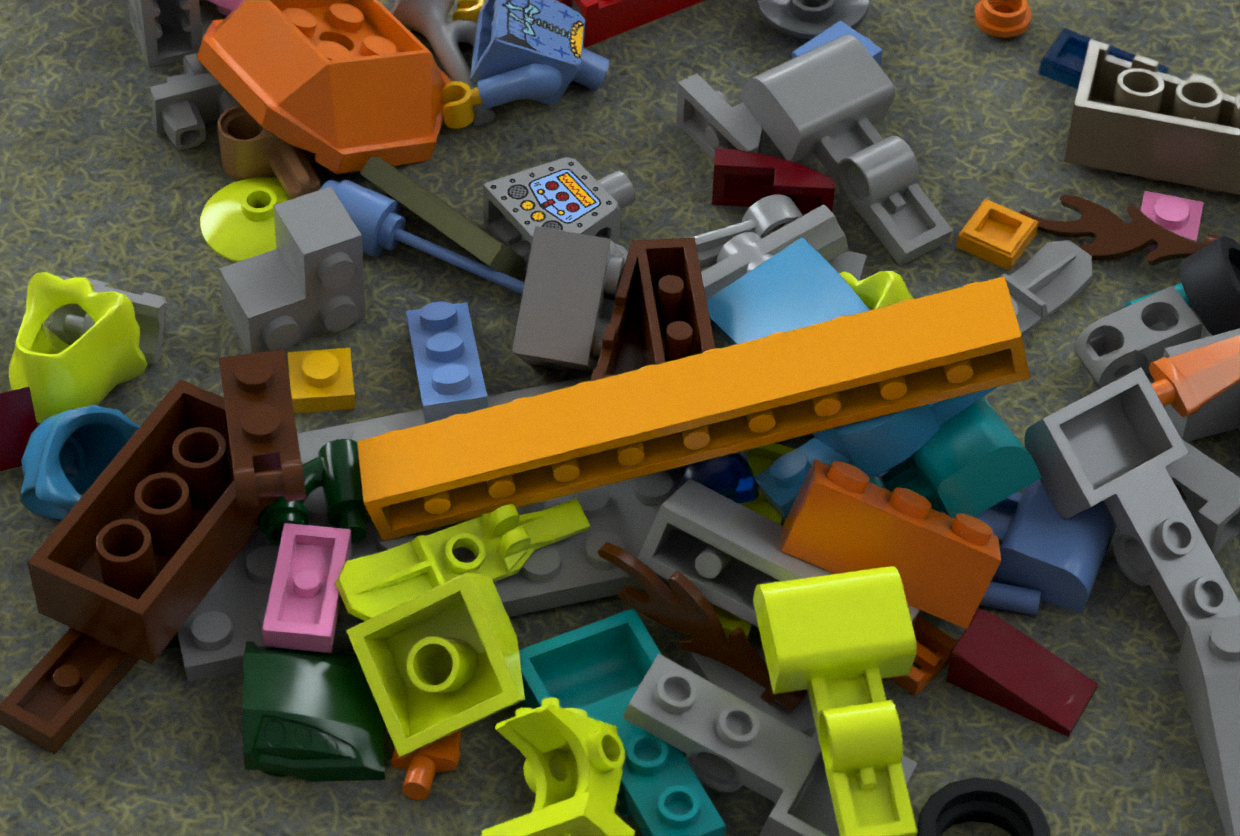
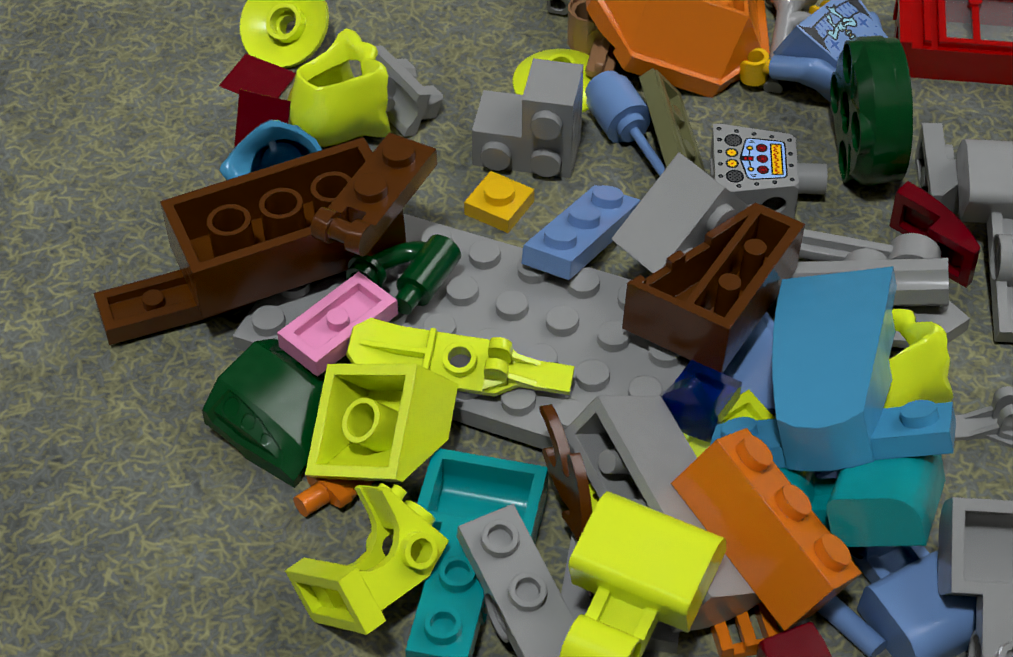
camera: 40 degrees right, 0 degrees up
(634, 92) = (872, 111): none -> dark green piece
(693, 409) = (703, 345): light orange brick -> none

